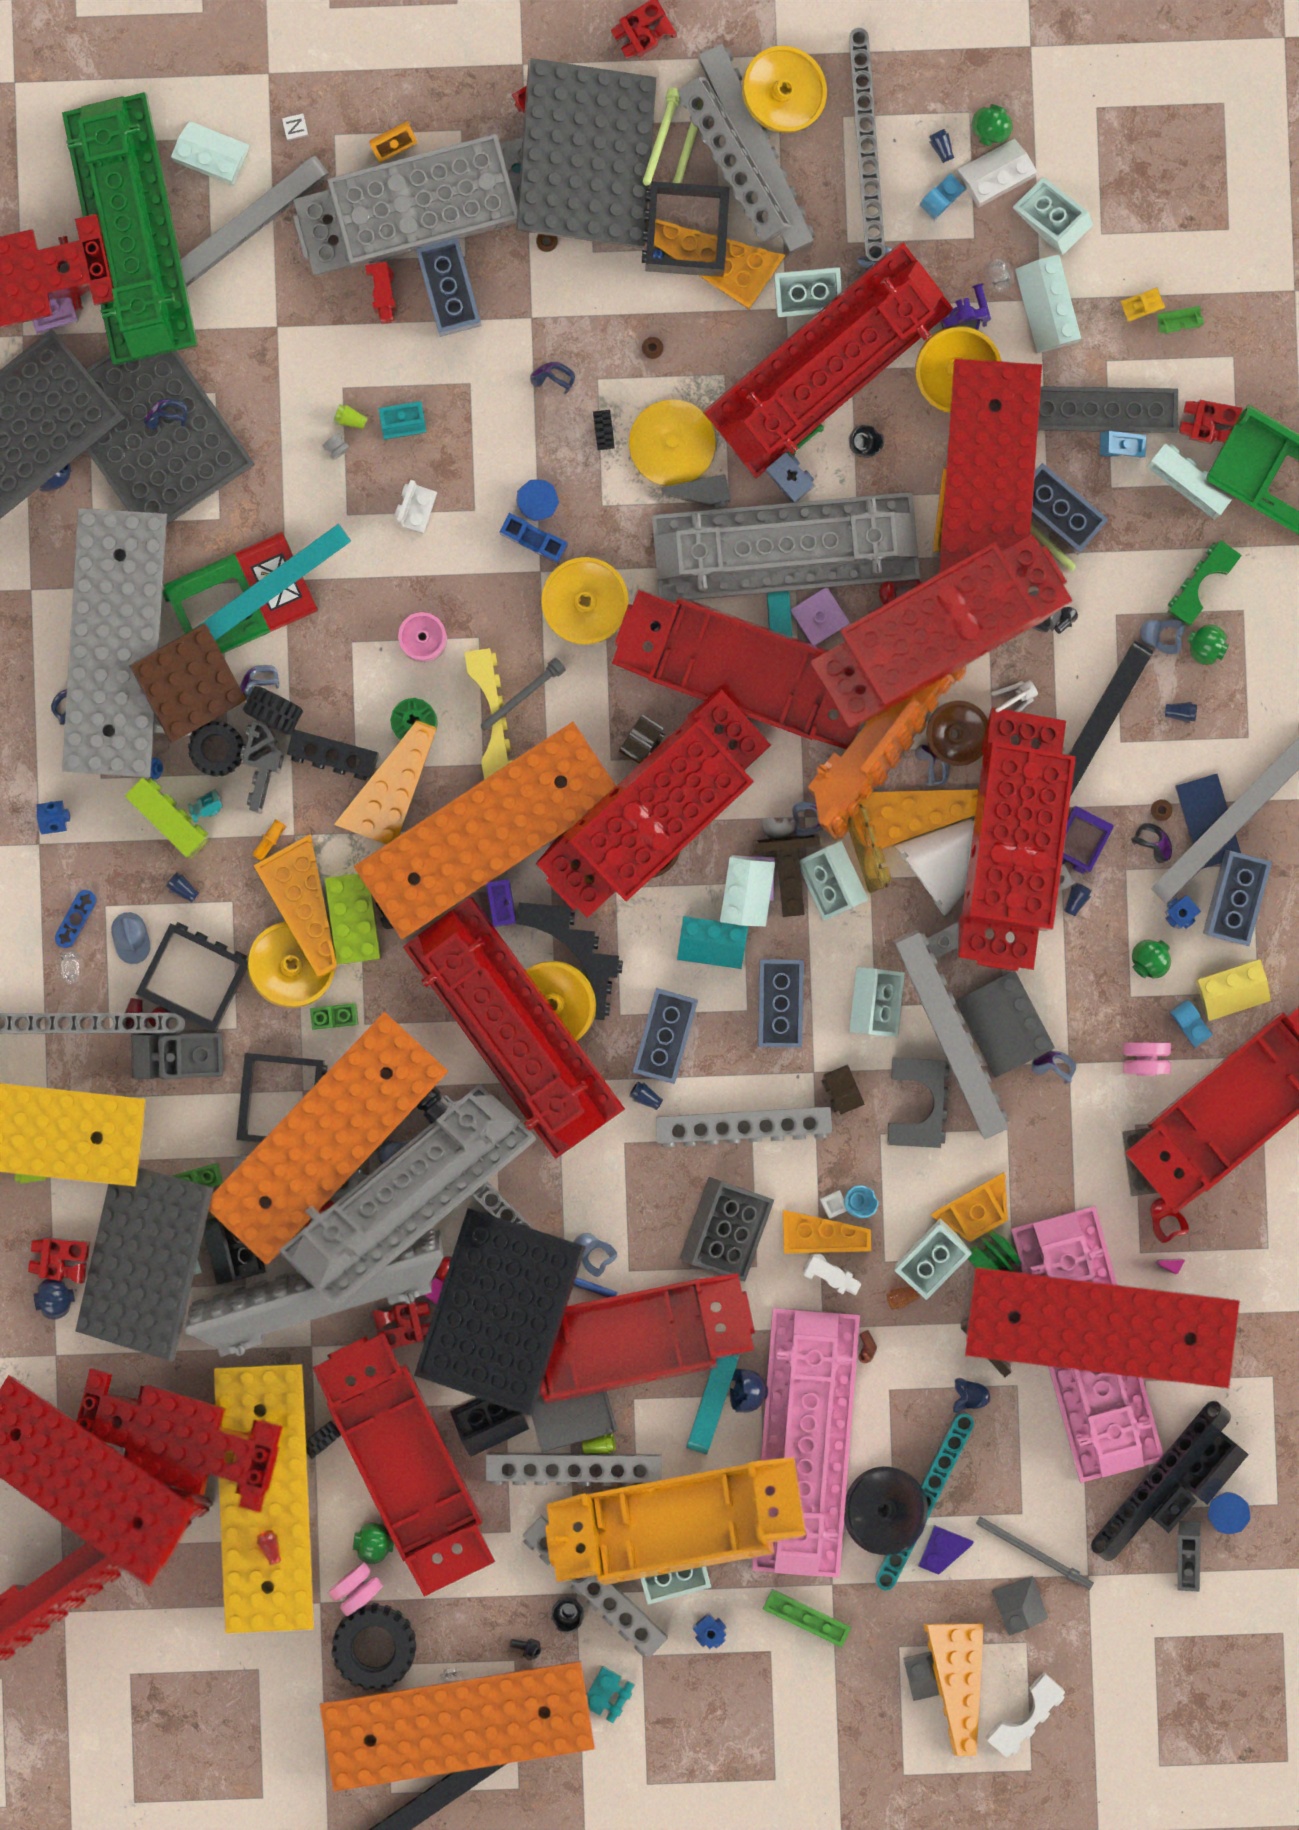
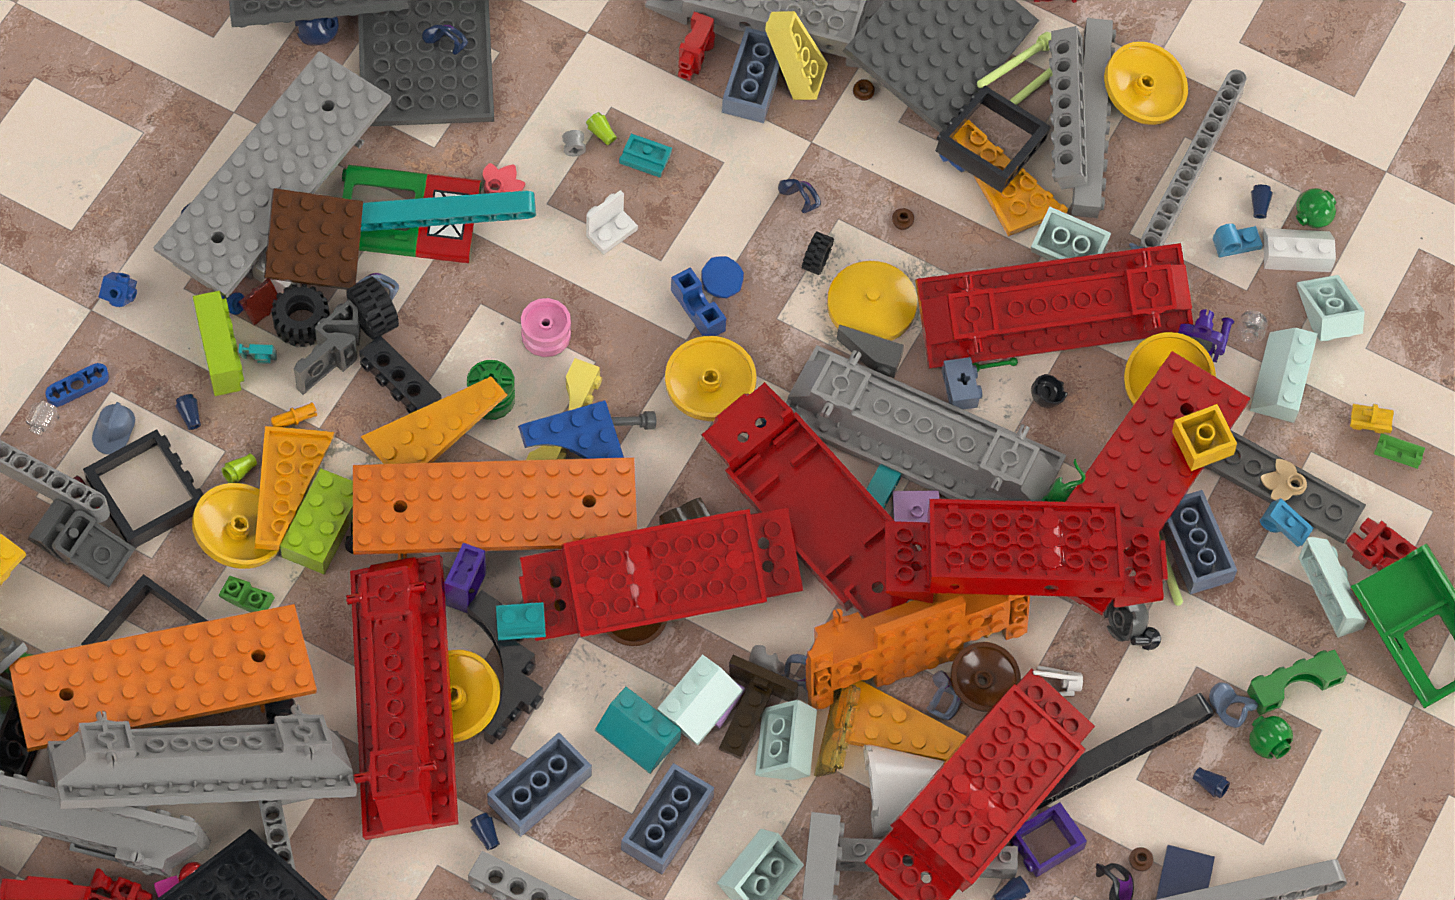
camera: 25 degrees right, 25 degrees down
(177, 759) = (259, 301): none -> clear red piece
(255, 913) = (238, 468): none -> lime cone
(297, 515) = (501, 178): none -> coral plate
(478, 255) = (796, 54): none -> light yellow wedge
(512, 718) = (583, 431): none -> blue plate
(568, 913) = (520, 621): none -> teal plate
(930, 539) = (1059, 491): none -> green animal
(1027, 431) = (1204, 437): none -> yellow brick
(1098, 409) = (1281, 481): none -> tan plate

